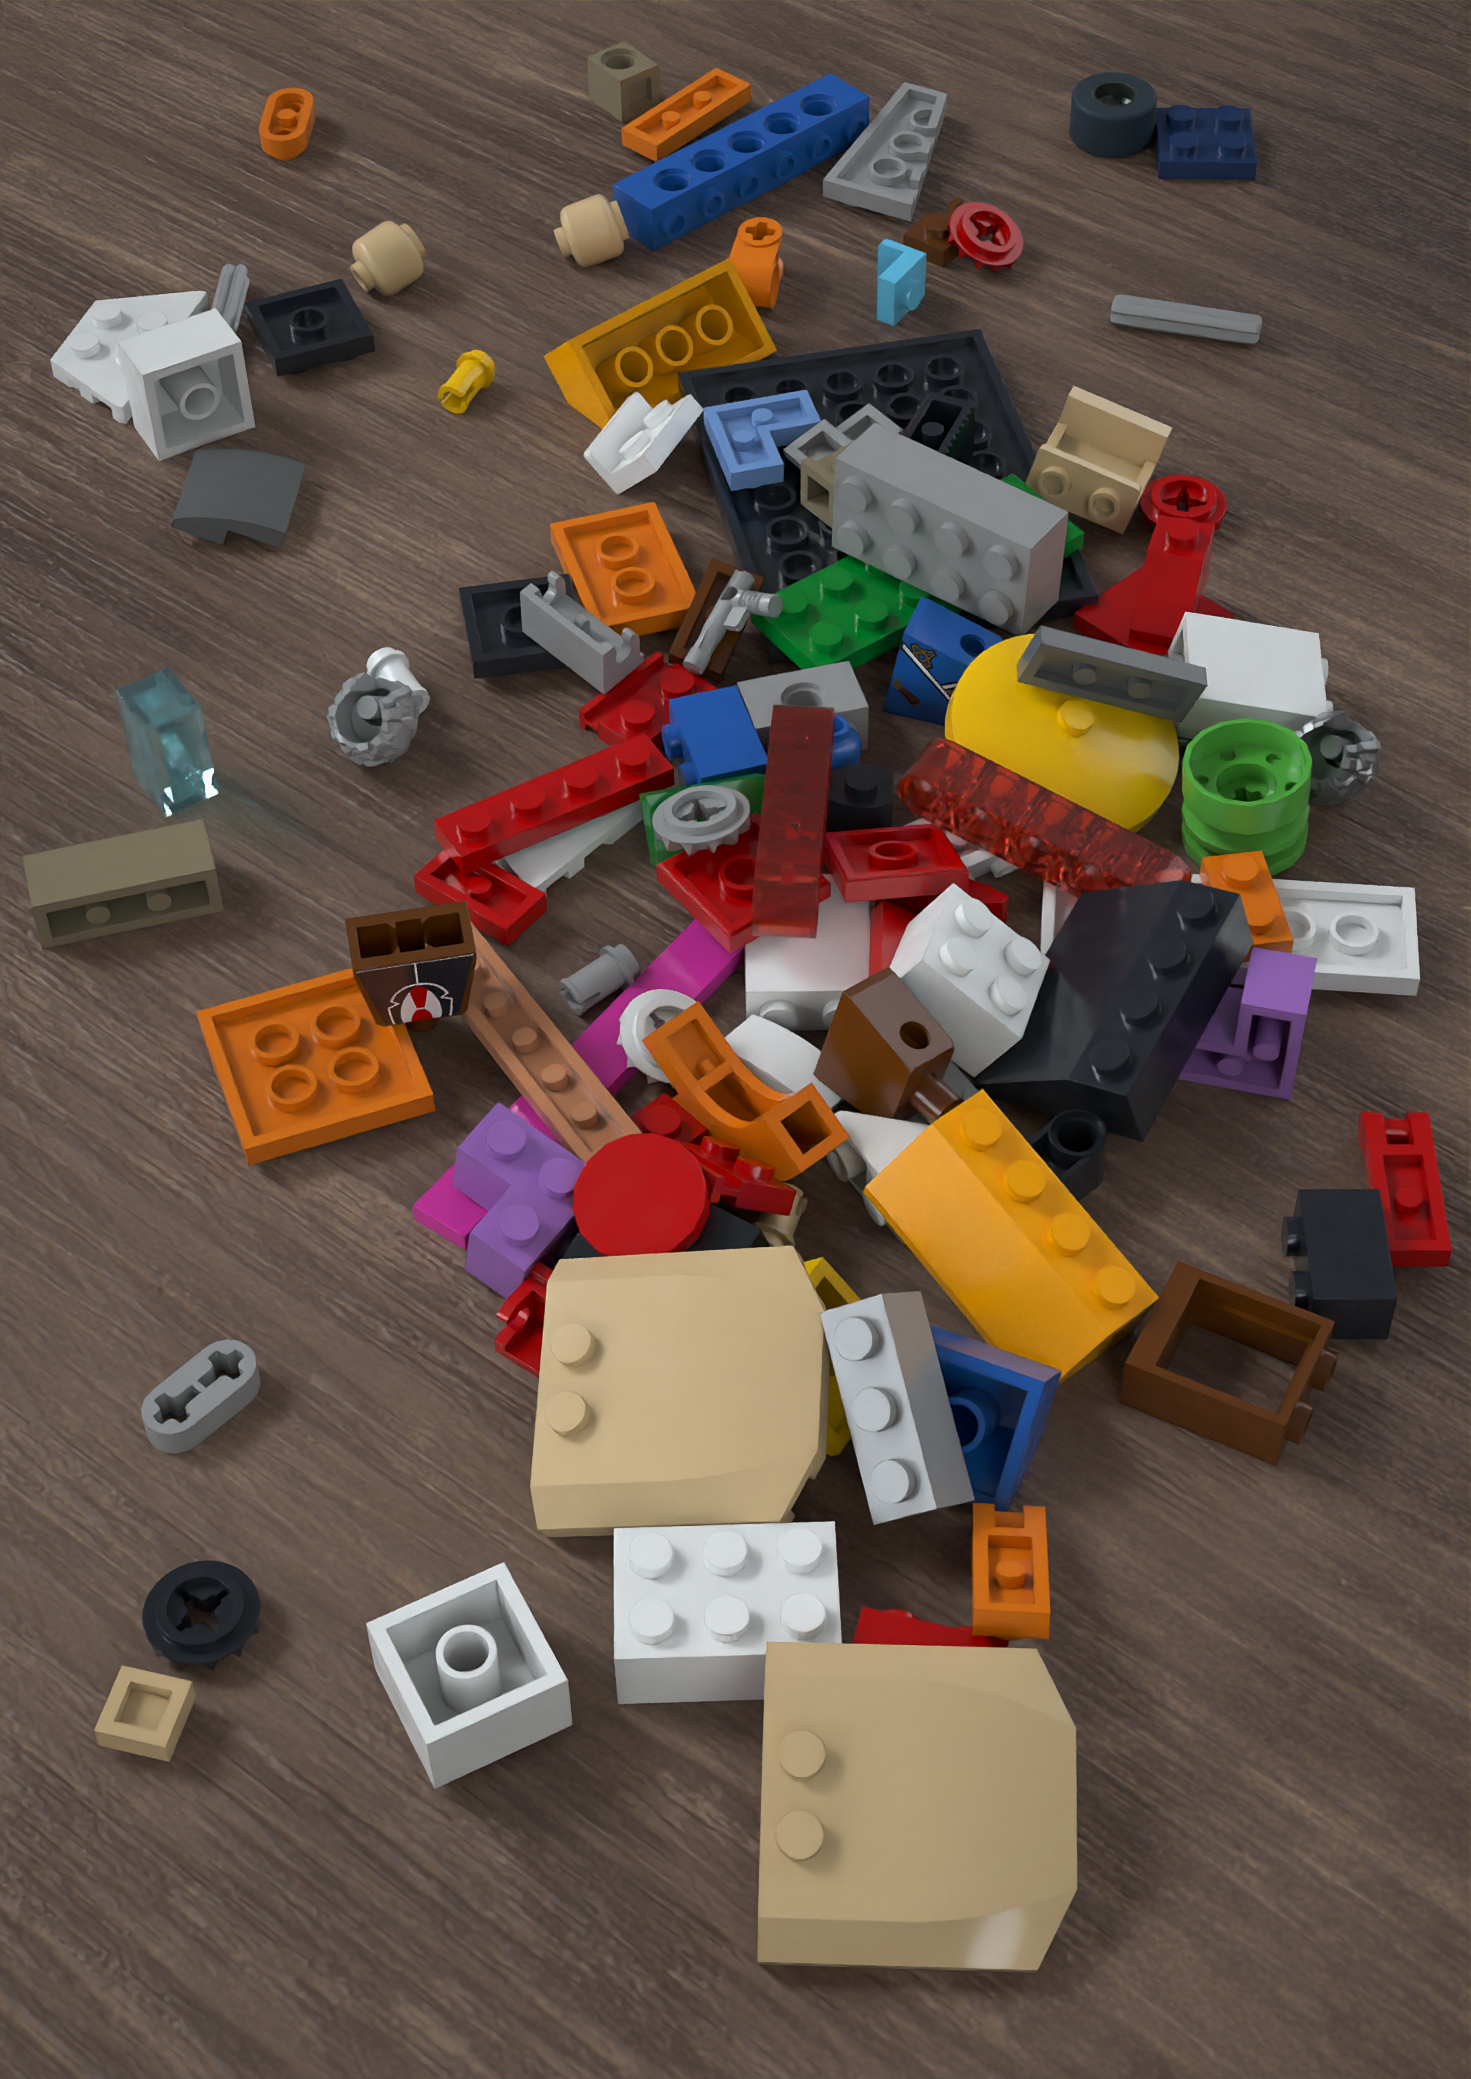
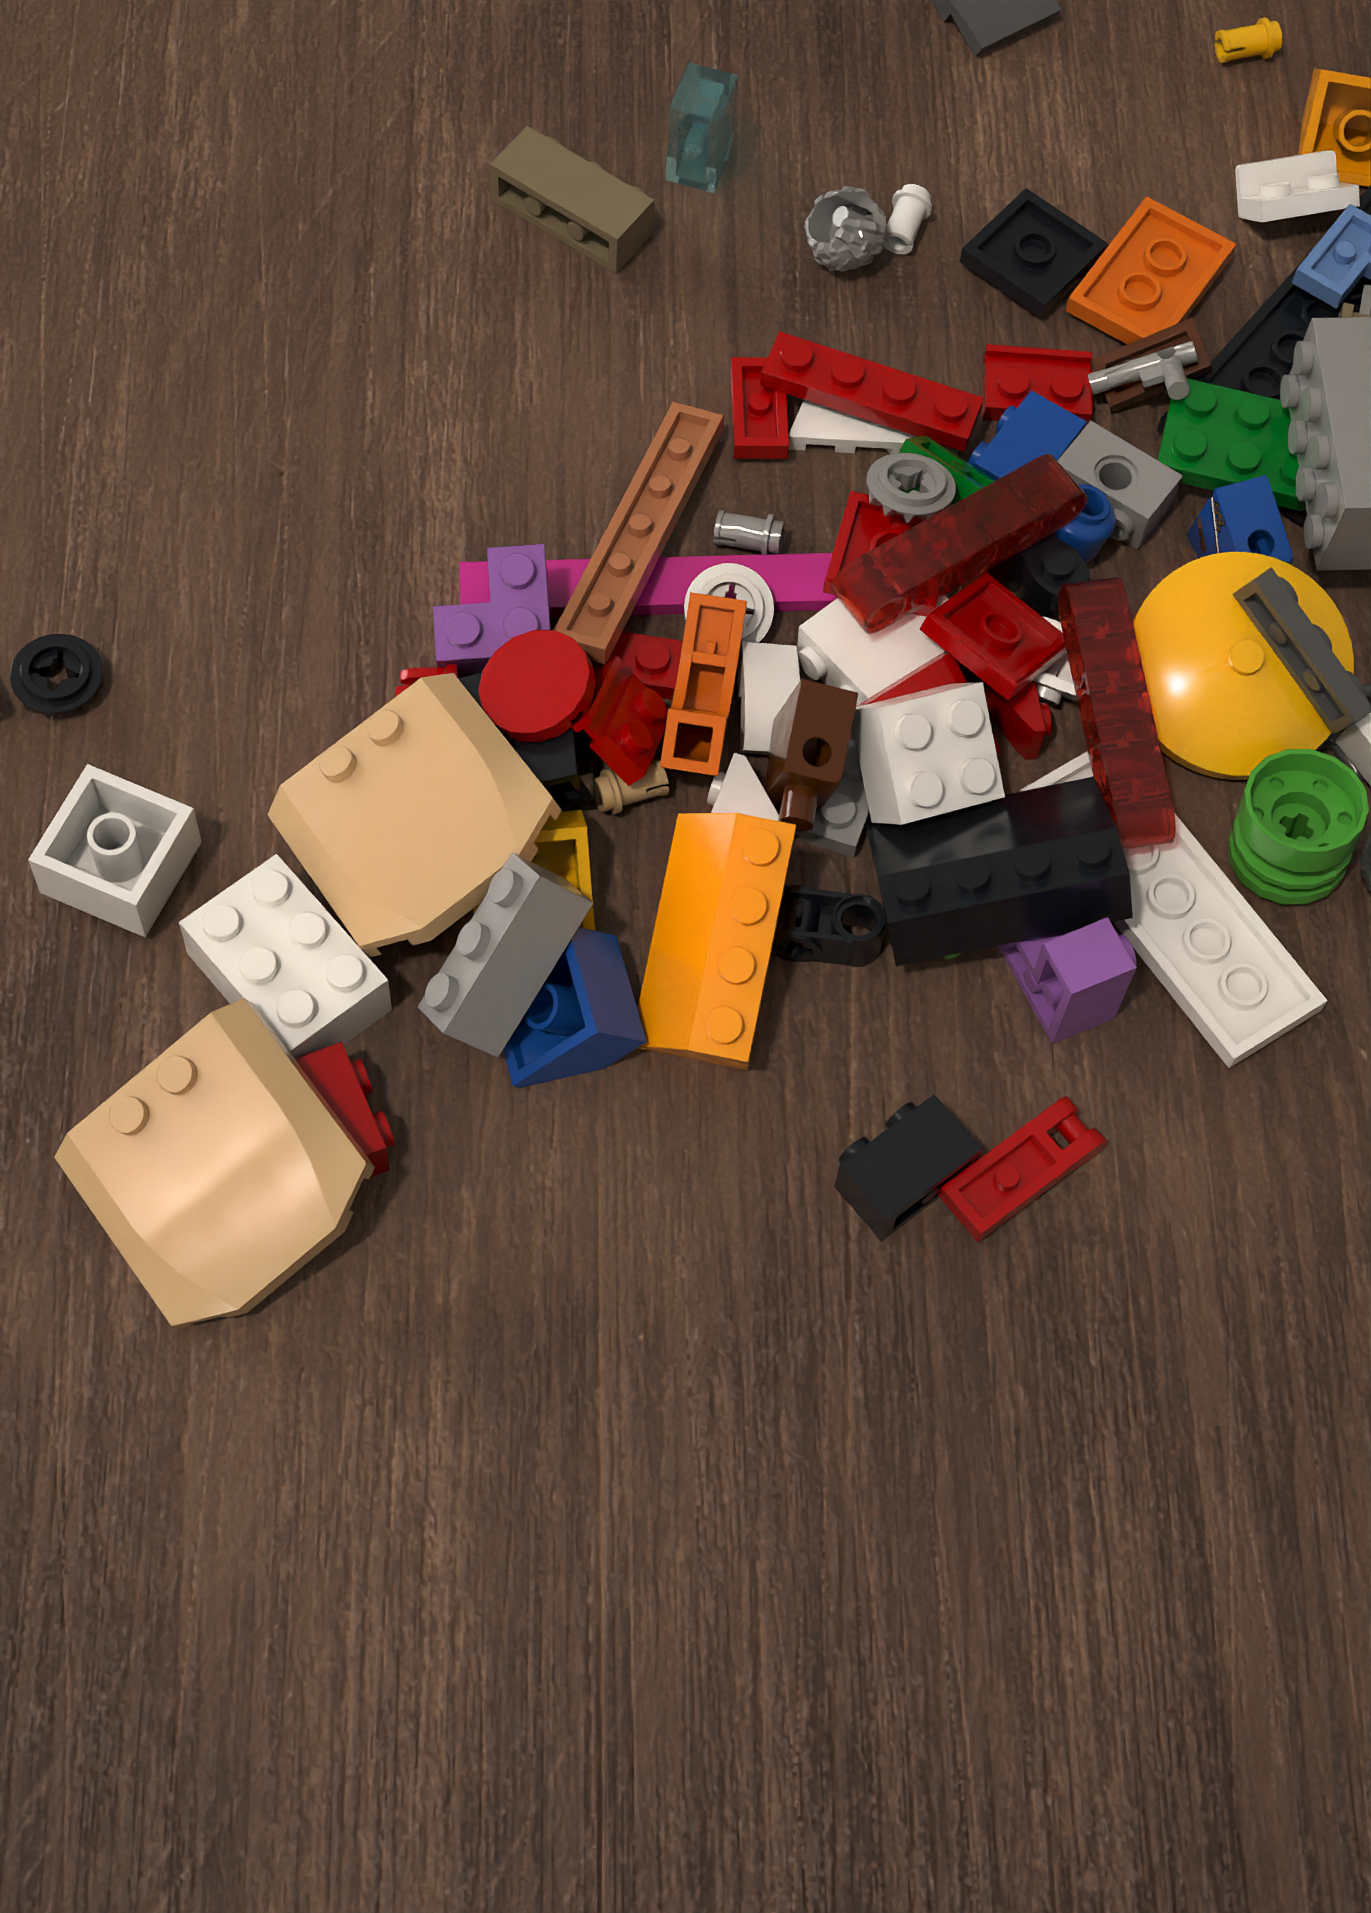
camera: 45 degrees right, 15 degrees up
(200, 1395) = (214, 555): light grey beam -> none
(311, 1066) = (526, 419): orange plate -> none
(414, 963) = (618, 407): torso -> none
(578, 636) = (1044, 291): light grey hinge -> none
(1010, 1573) = (447, 1112): orange plate -> none
(1244, 1317) = (741, 1089): reddish brown window -> none
(1250, 877) = (1189, 895): orange plate -> none

